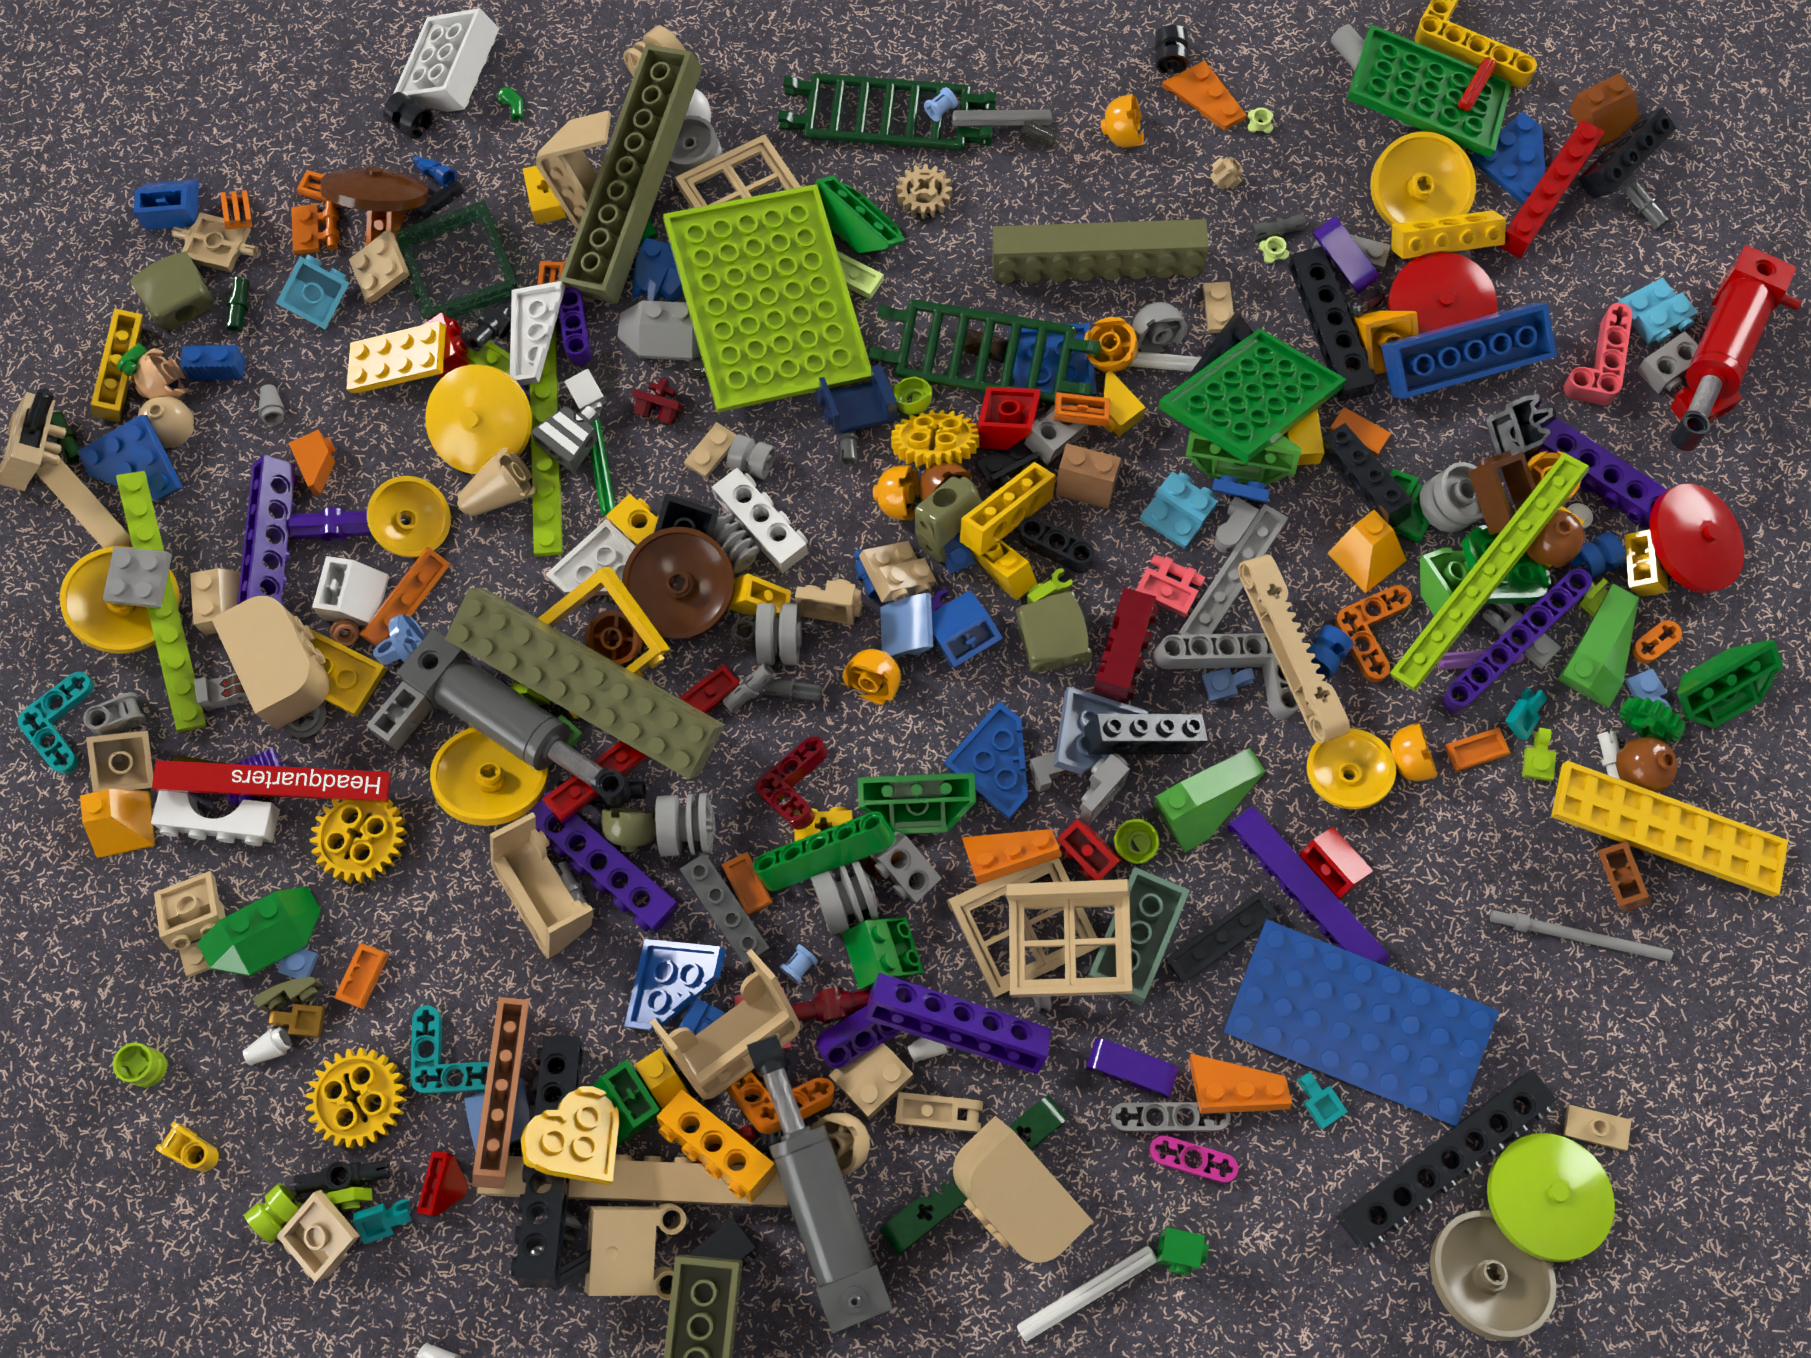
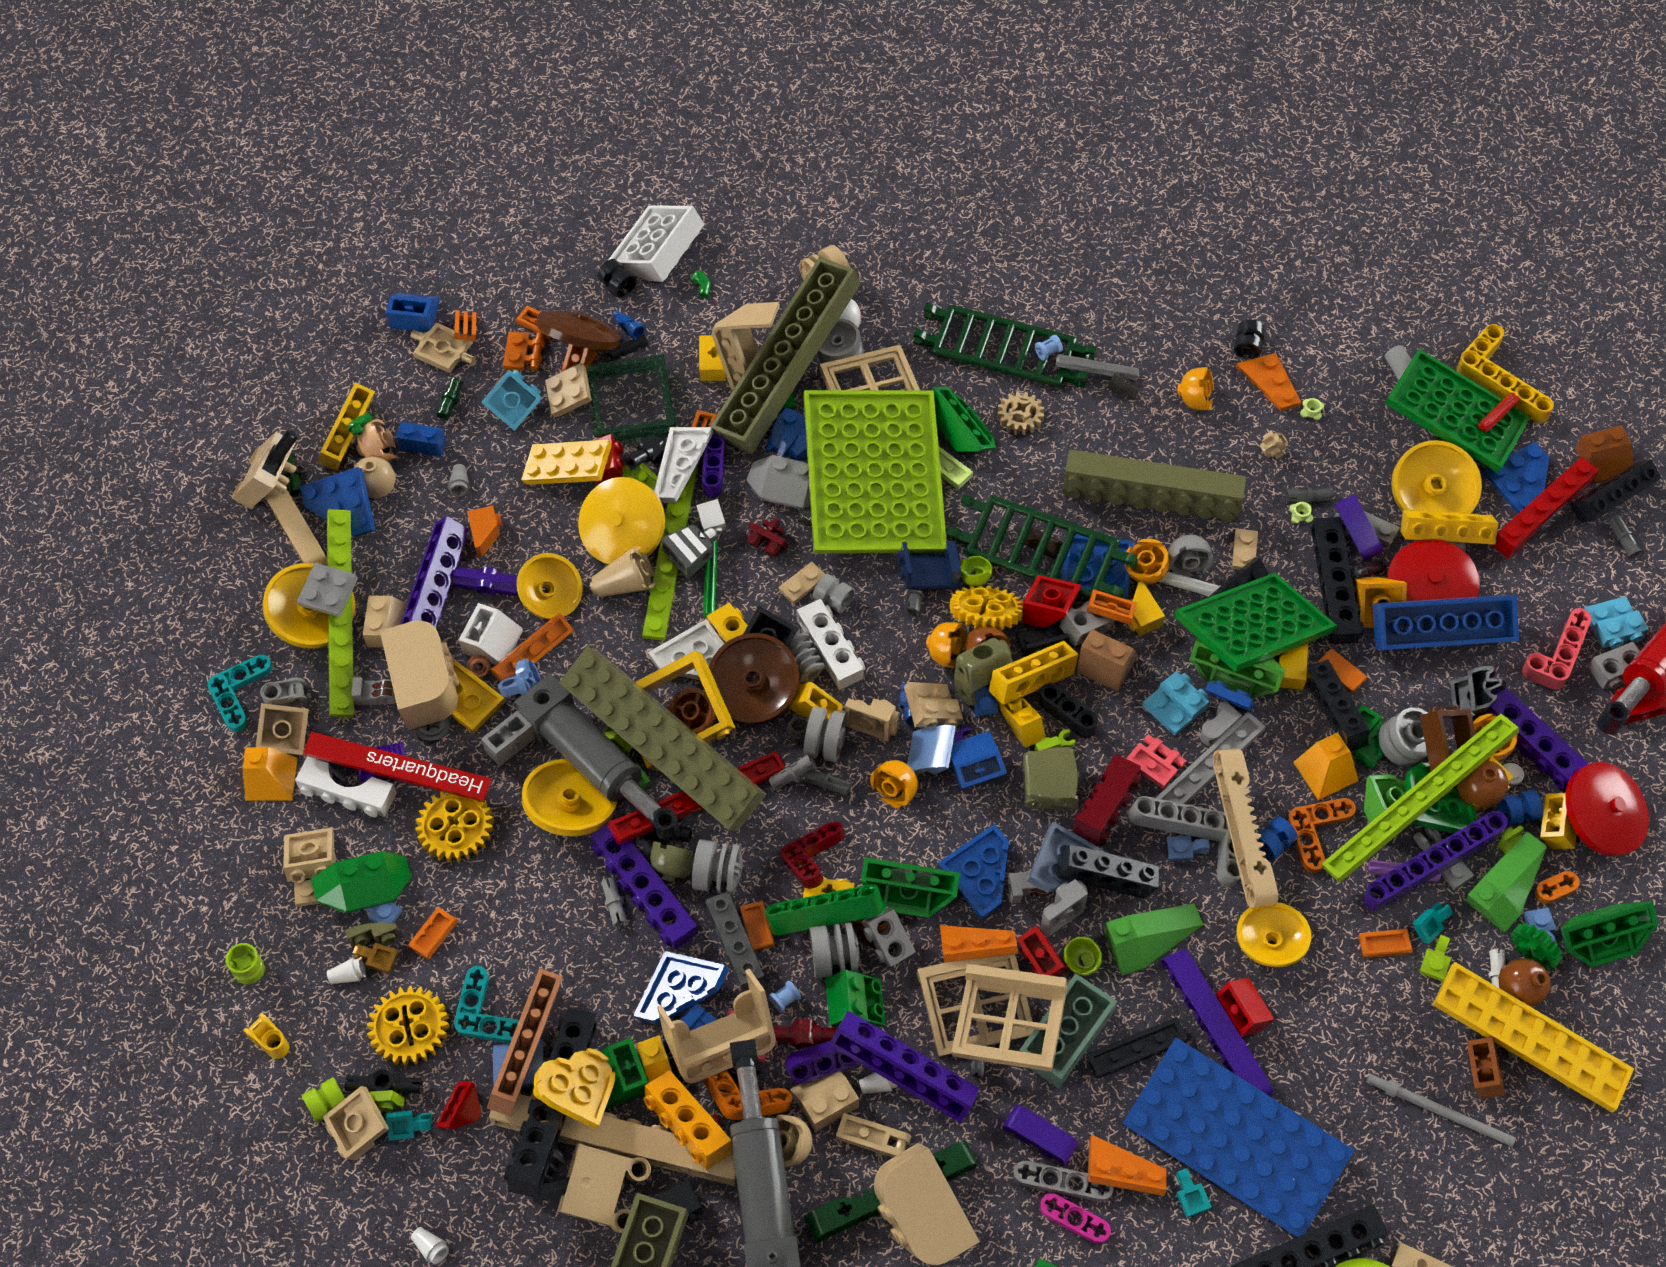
camera: 10 degrees right, 10 degrees down
(173, 291) = (402, 378): olive piece -> none
(535, 886) = (586, 890): tan windscreen -> none
(1412, 754) = (1328, 934): light orange cylinder -> none

